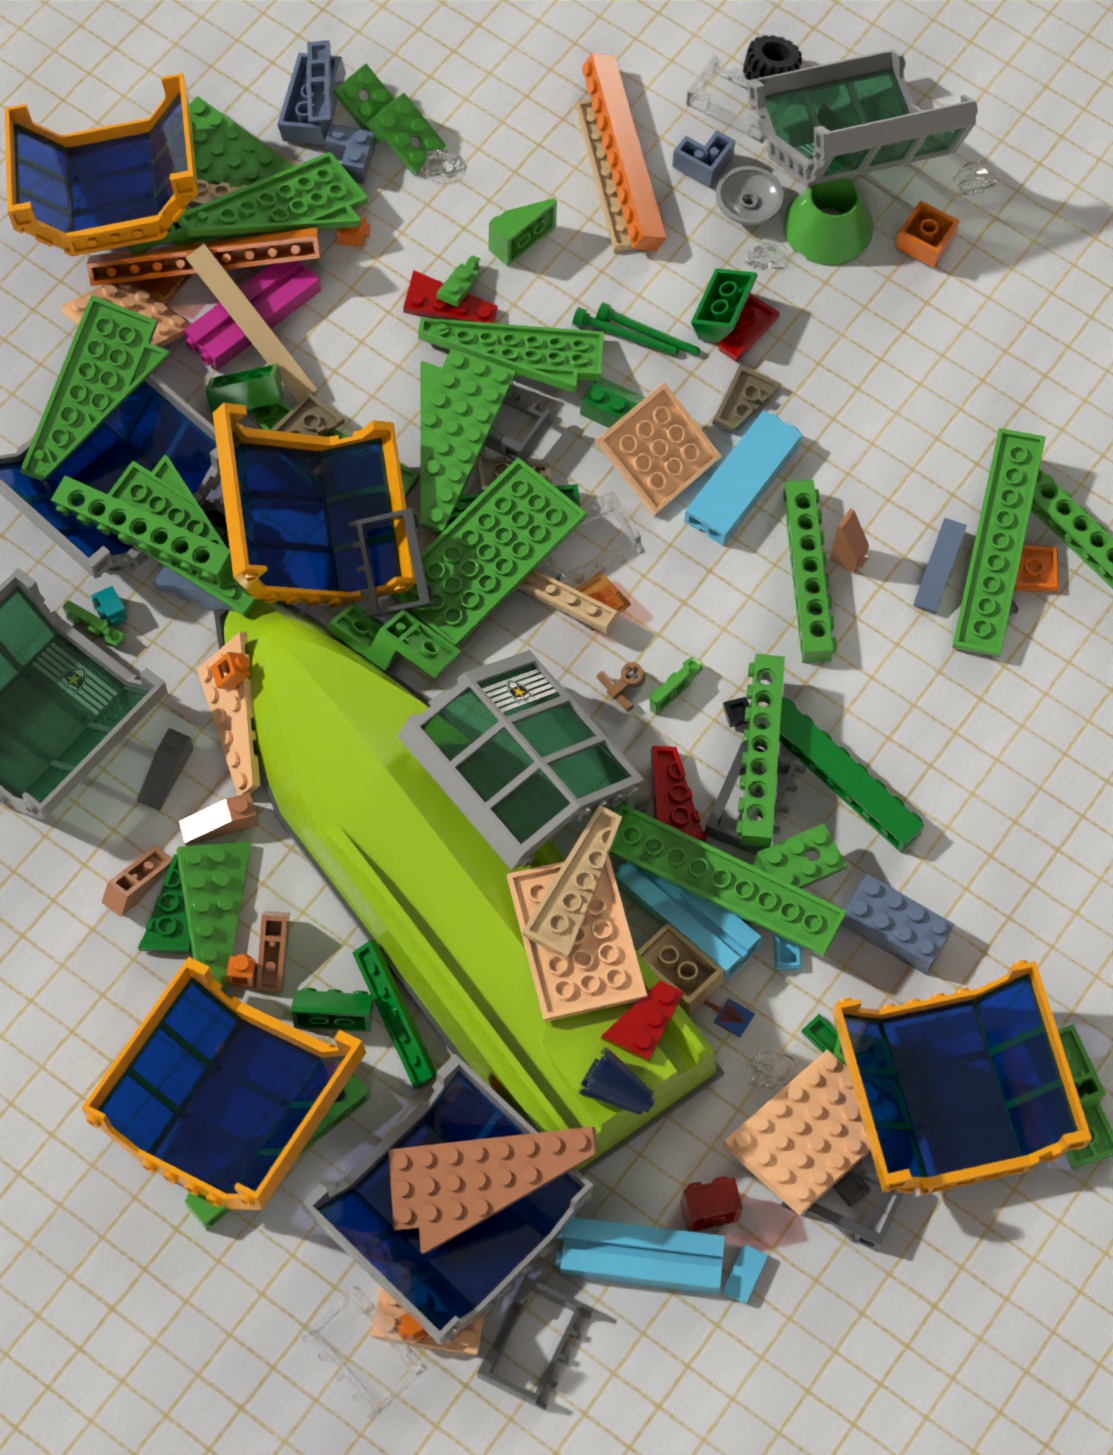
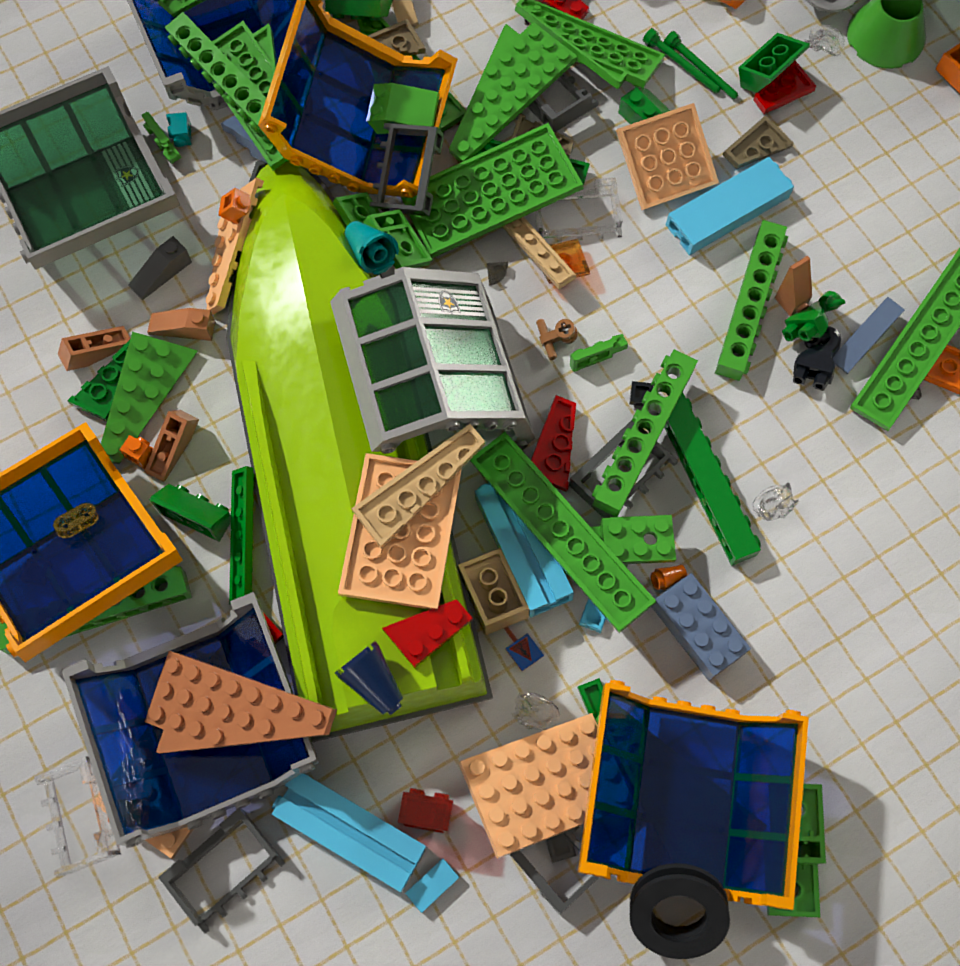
camera: 25 degrees right, 5 degrees up
(219, 1065) = (76, 520): none -> clear yellow beam
(356, 497) = (401, 105): none -> bright green slope
(398, 661) = (373, 246): none -> teal cone
(529, 638) = (496, 272): none -> clear smoke tile
(842, 888) = (665, 577): none -> orange cone
(879, 571) = (813, 320): none -> green hips
(900, 610) = (818, 361): none -> black hips
(918, 772) = (775, 502): none -> clear hat
(1015, 1215) = (679, 941): none -> black tyre

